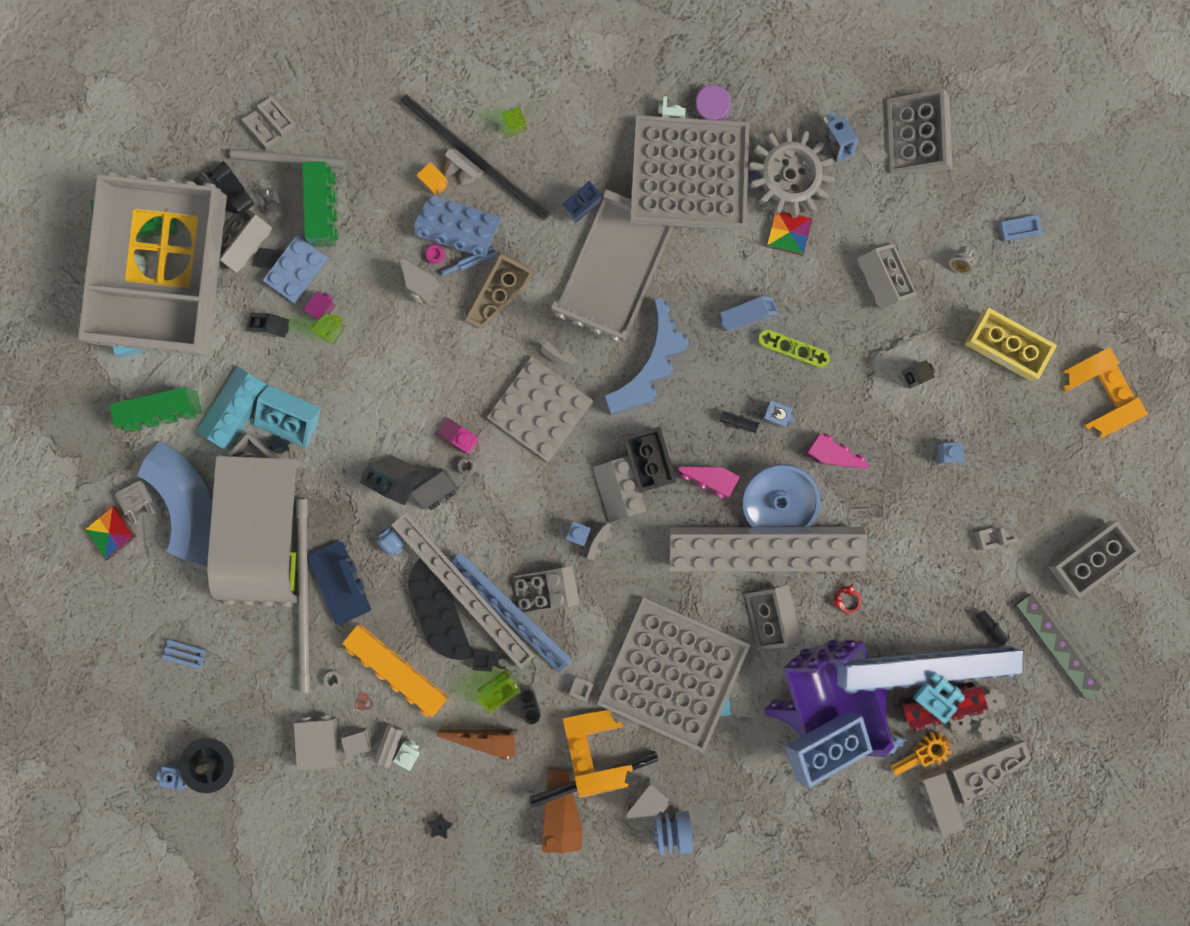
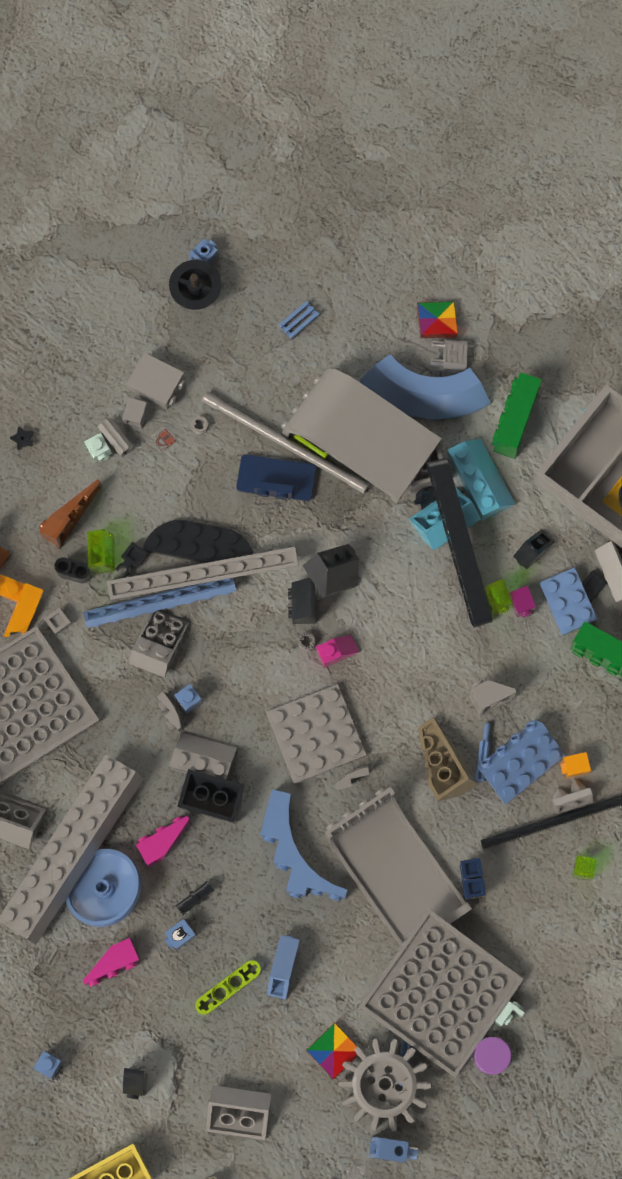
camera: 120 degrees right, 10 degrees down
(299, 387) = (459, 542): none -> black beam
(390, 541) = (283, 539): medium blue head -> none
(395, 670) = (173, 479): light orange brick -> none
(435, 254) = (508, 727): dark pink tile -> none

